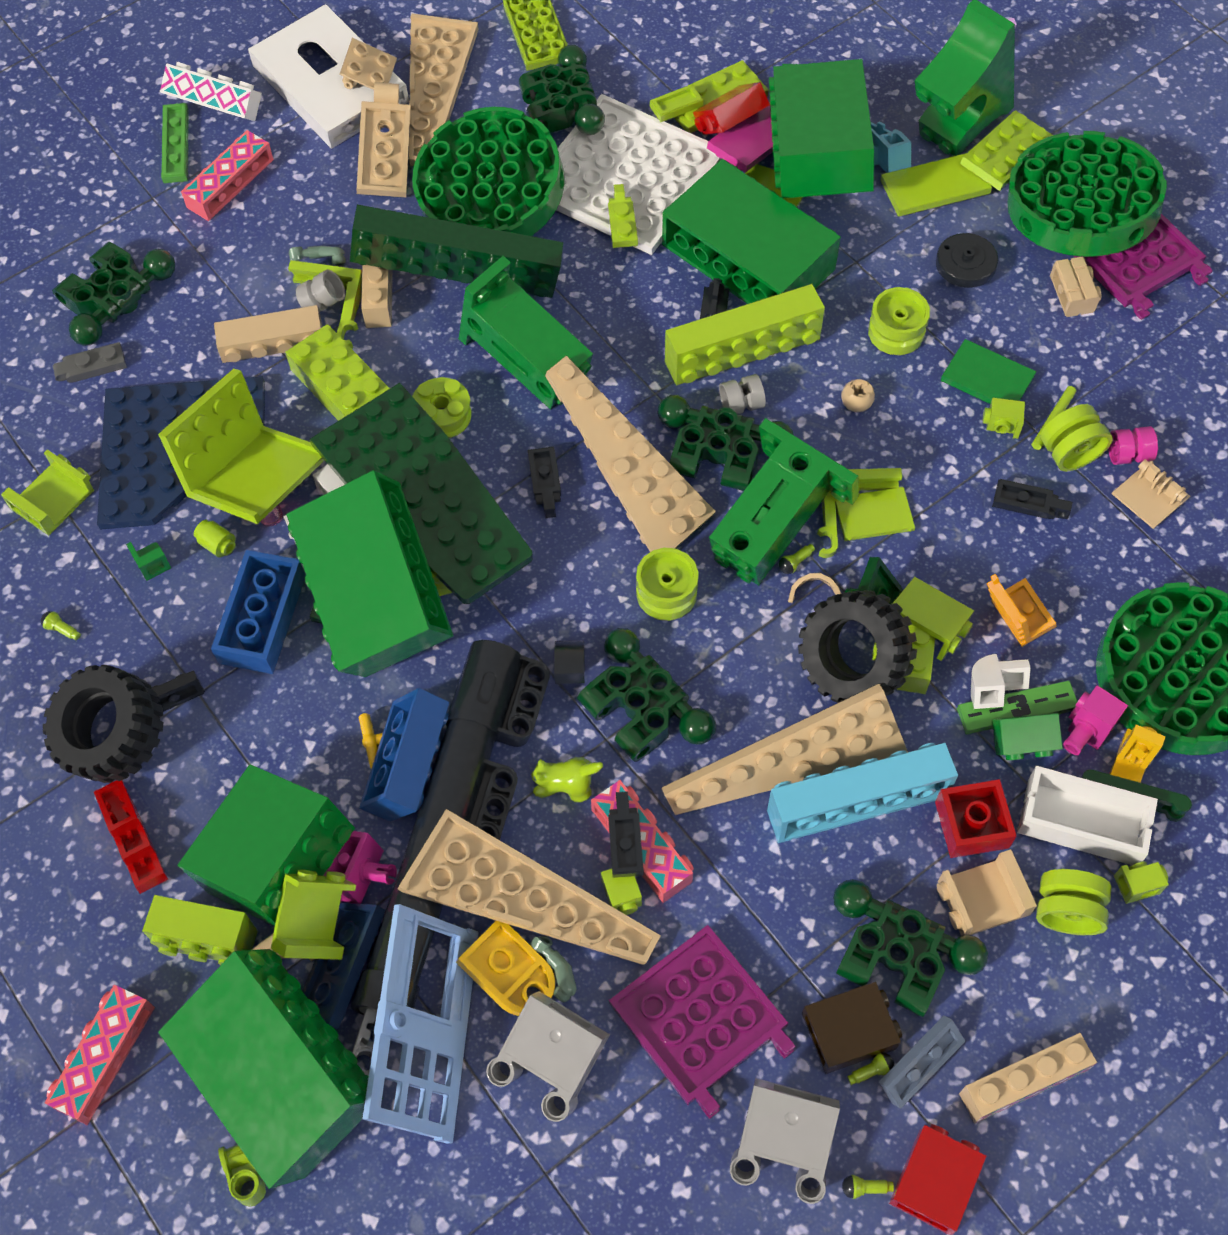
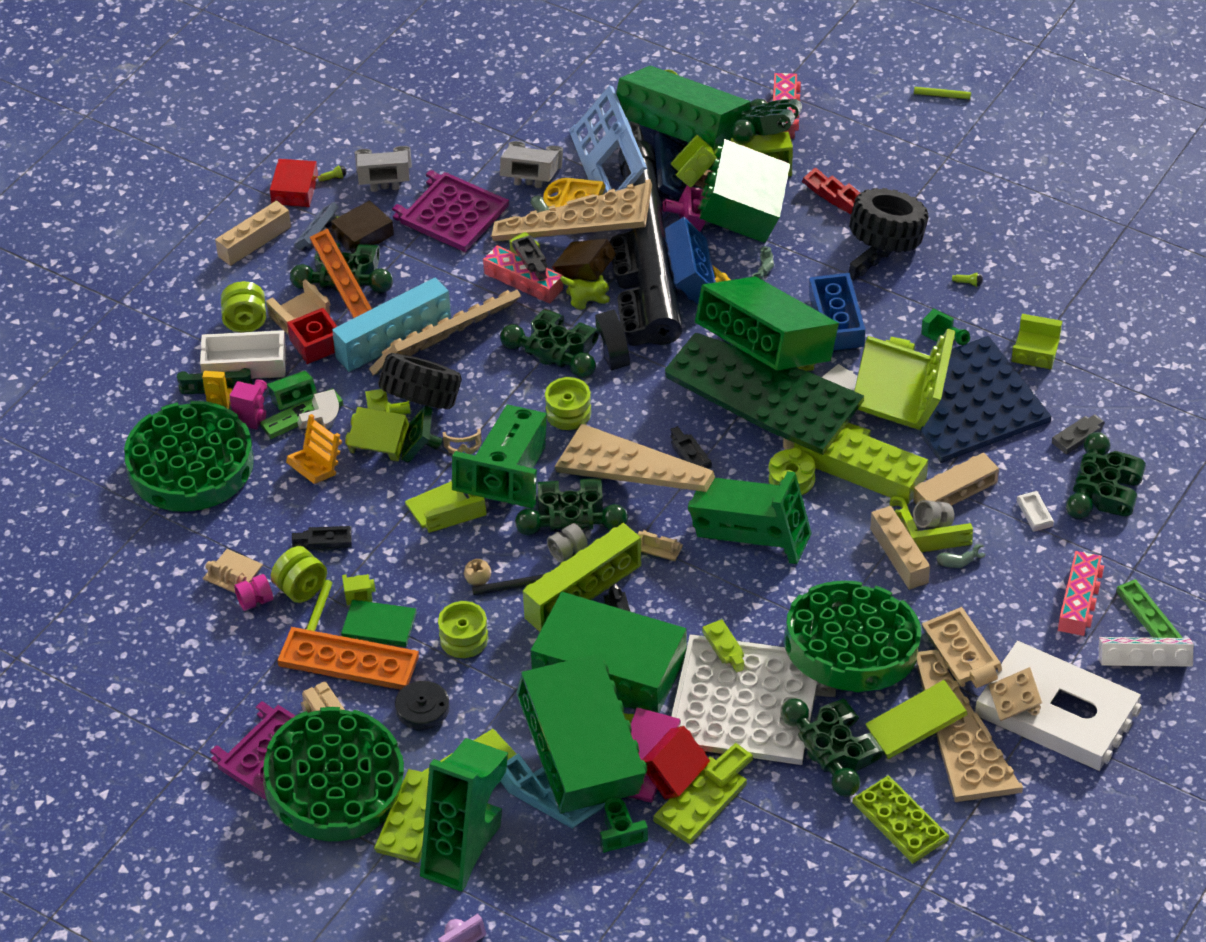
camera: 160 degrees right, 15 degrees down
(133, 529) = (961, 336): none -> green pin
(146, 930) = (765, 119): none -> dark green connector
(205, 287) = (1035, 511): none -> white tile
(297, 745) = (766, 261): none -> sand green arm
(452, 249) = (838, 552): dark green brick -> none
(469, 89) = (916, 719): none -> lime tile
(549, 815) = (585, 259): none -> dark brown brick
(636, 369) = (660, 547): none -> tan hinge
(811, 377) = (504, 585): none -> black bar
(913, 891) = (340, 273): none -> orange plate
(1036, 339) = (348, 658): none -> orange plate
(1141, 881) = (195, 336): lime brick -> none

